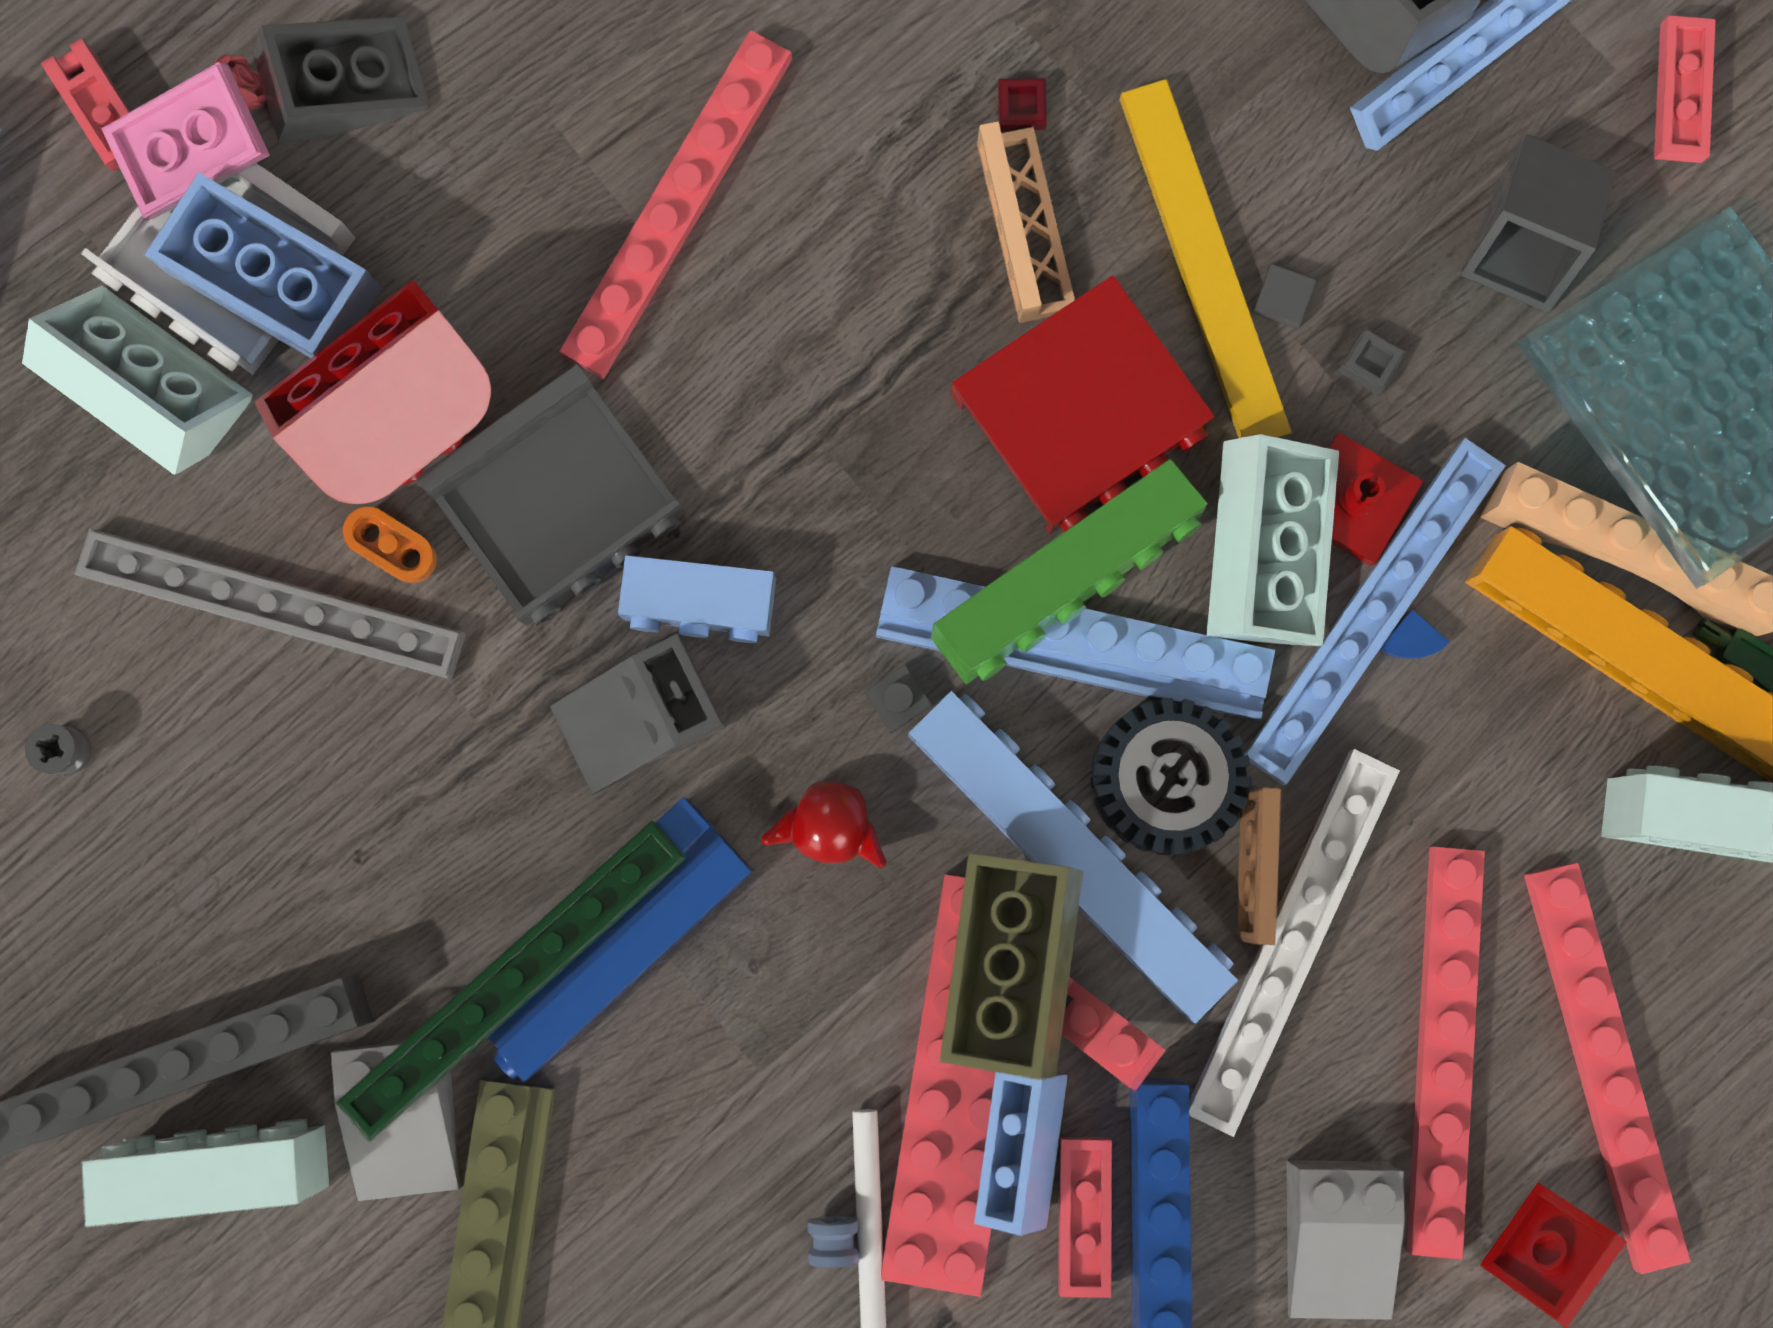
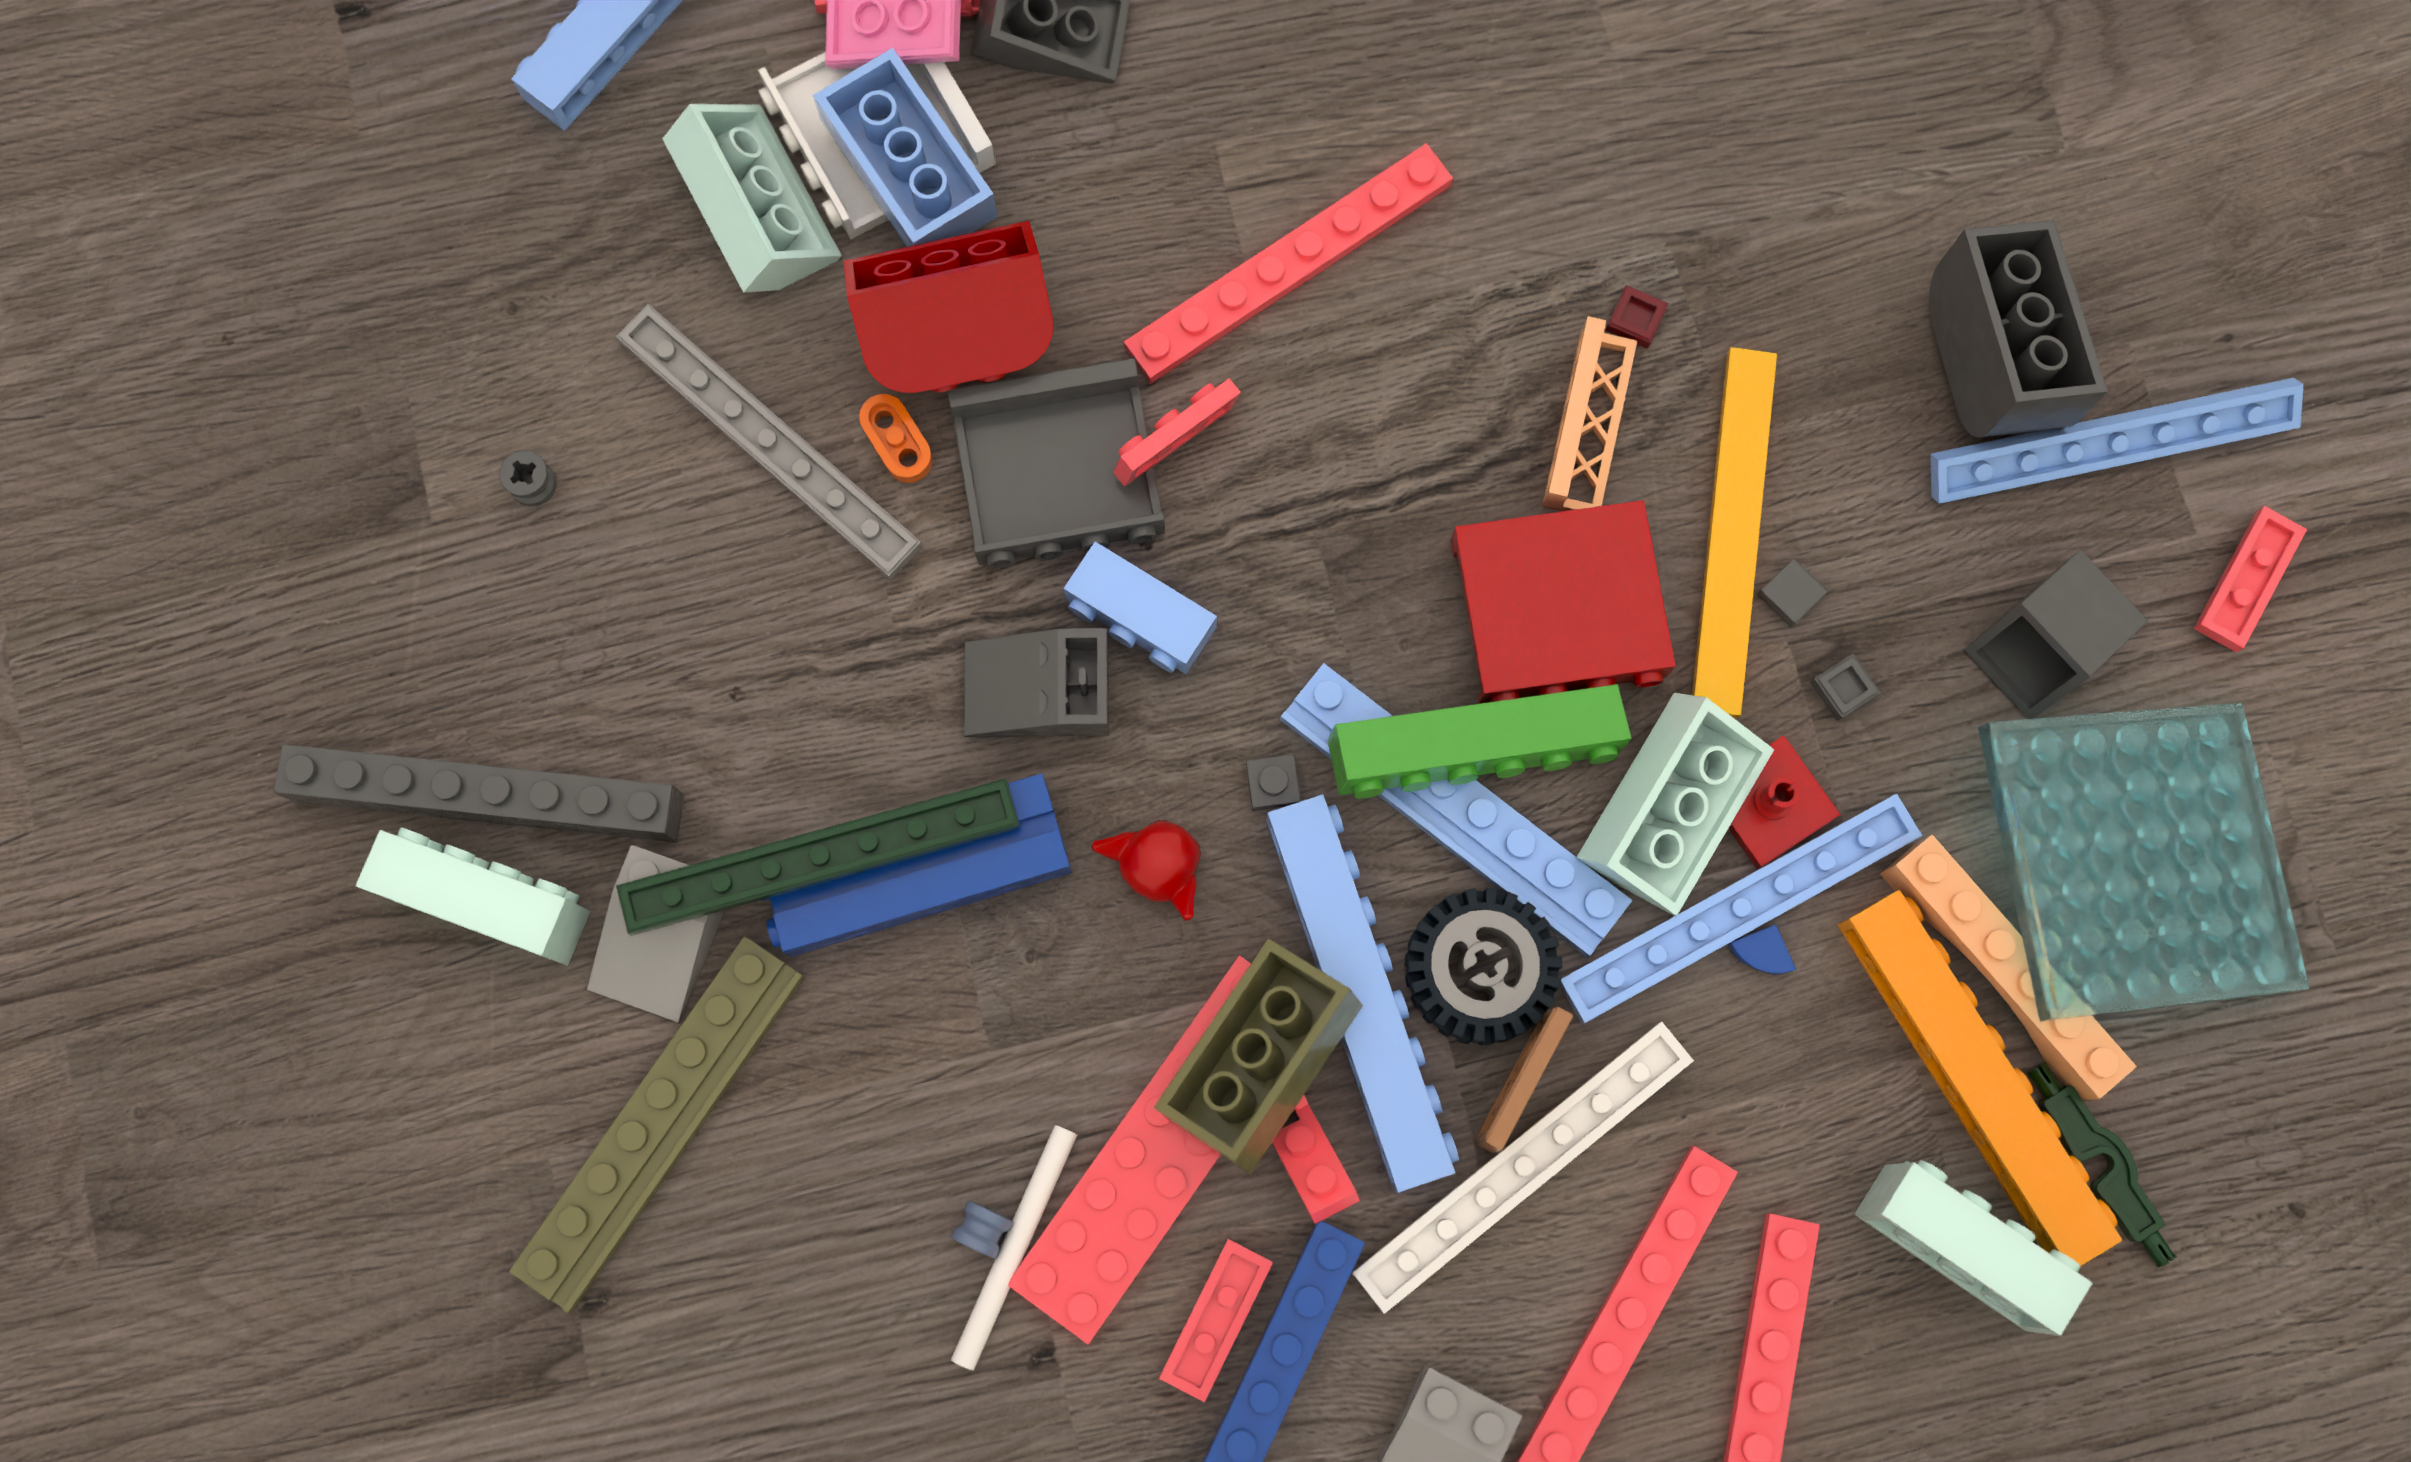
camera: 25 degrees right, 5 degrees down
(648, 414) = (1175, 430): none -> coral plate
(1020, 1153) = (1188, 1228): light blue brick -> none

